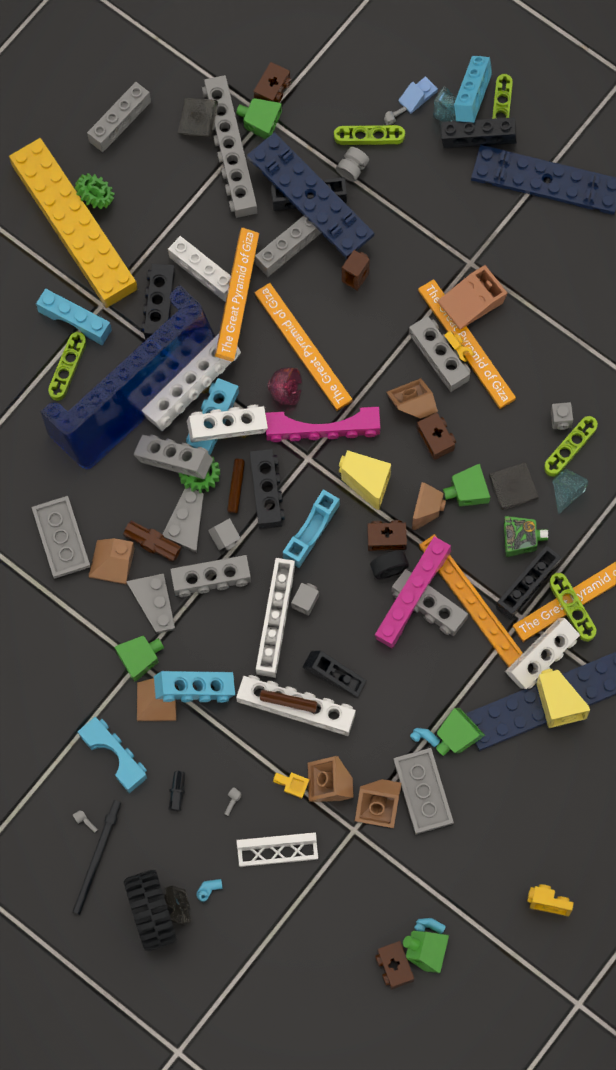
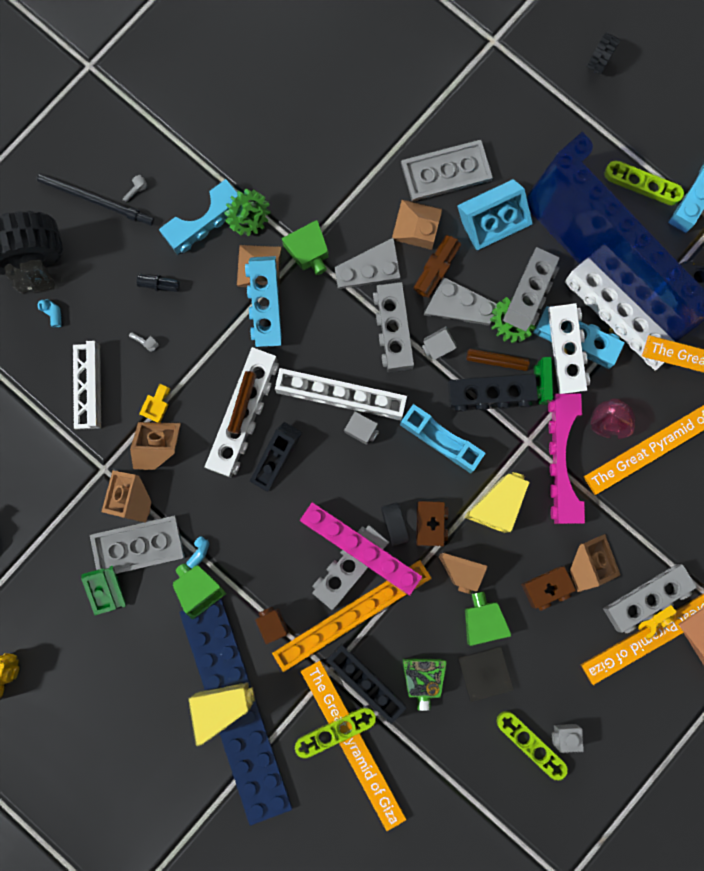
camera: 90 degrees right, 10 degrees up
(101, 492) = (495, 214): none -> medium azure slope
(109, 710) = (247, 212): none -> bright green gear
(253, 443) = (543, 372): none -> green plate
(464, 815) = (103, 590): none -> green plate
(484, 664) = (271, 625): none -> reddish brown brick
(518, 670) = (294, 695): white brick -> none
(568, 488) = (480, 738): clear light blue slope -> none

